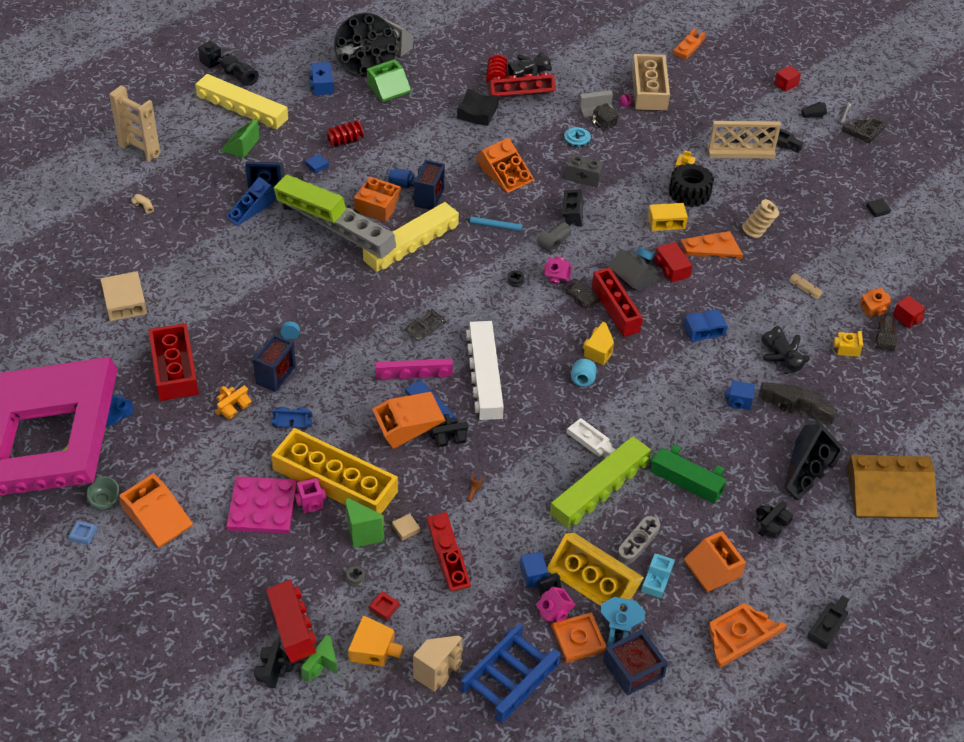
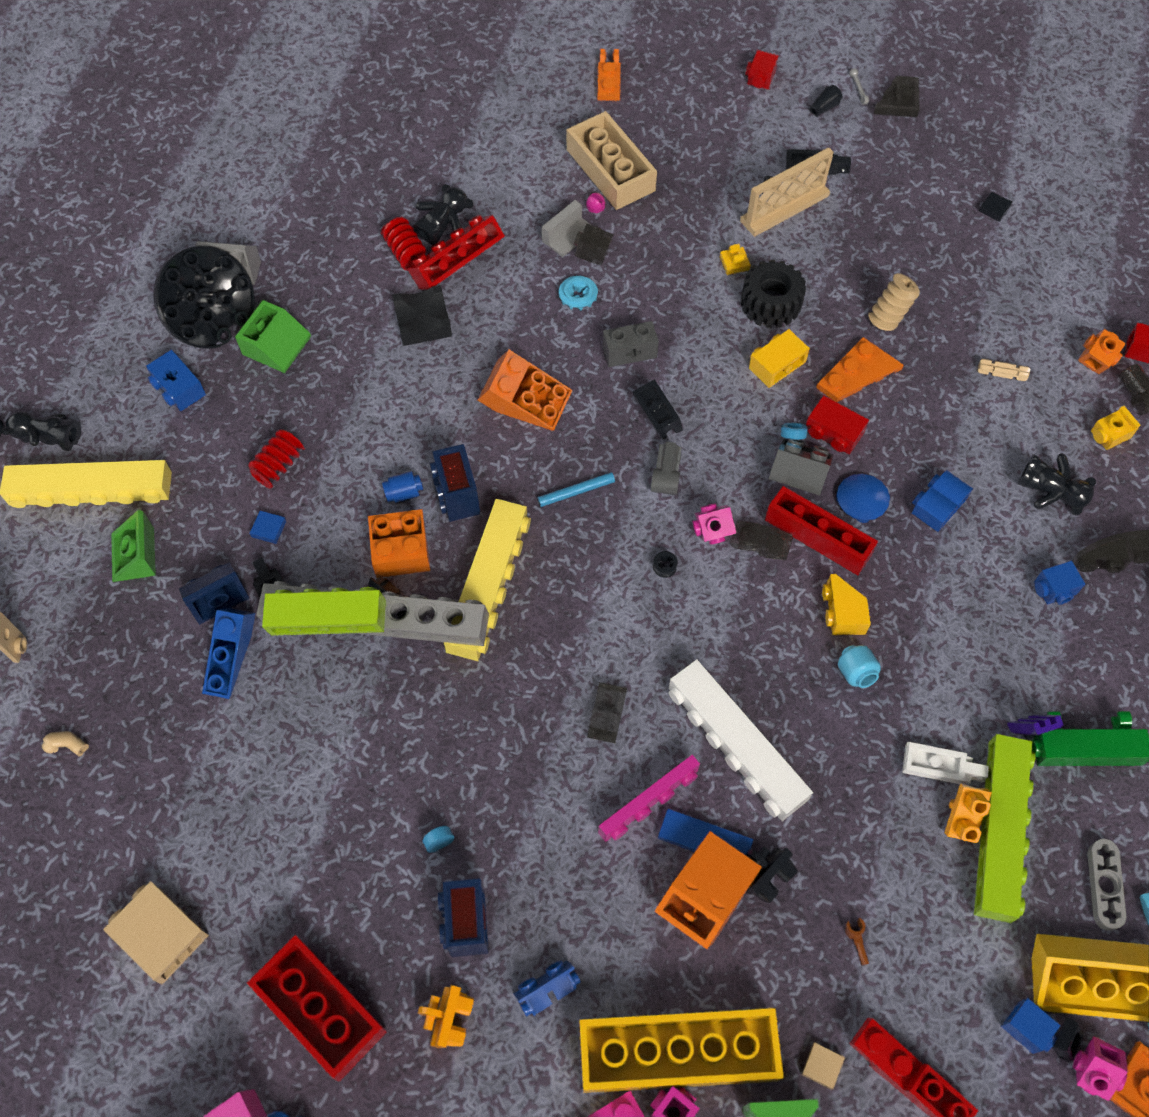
camera: 30 degrees left, 15 degrees up
(584, 461) = (967, 813): none -> light orange hips
(659, 303) = (863, 497): none -> blue dish
(660, 440) = (1035, 724): none -> dark purple tile

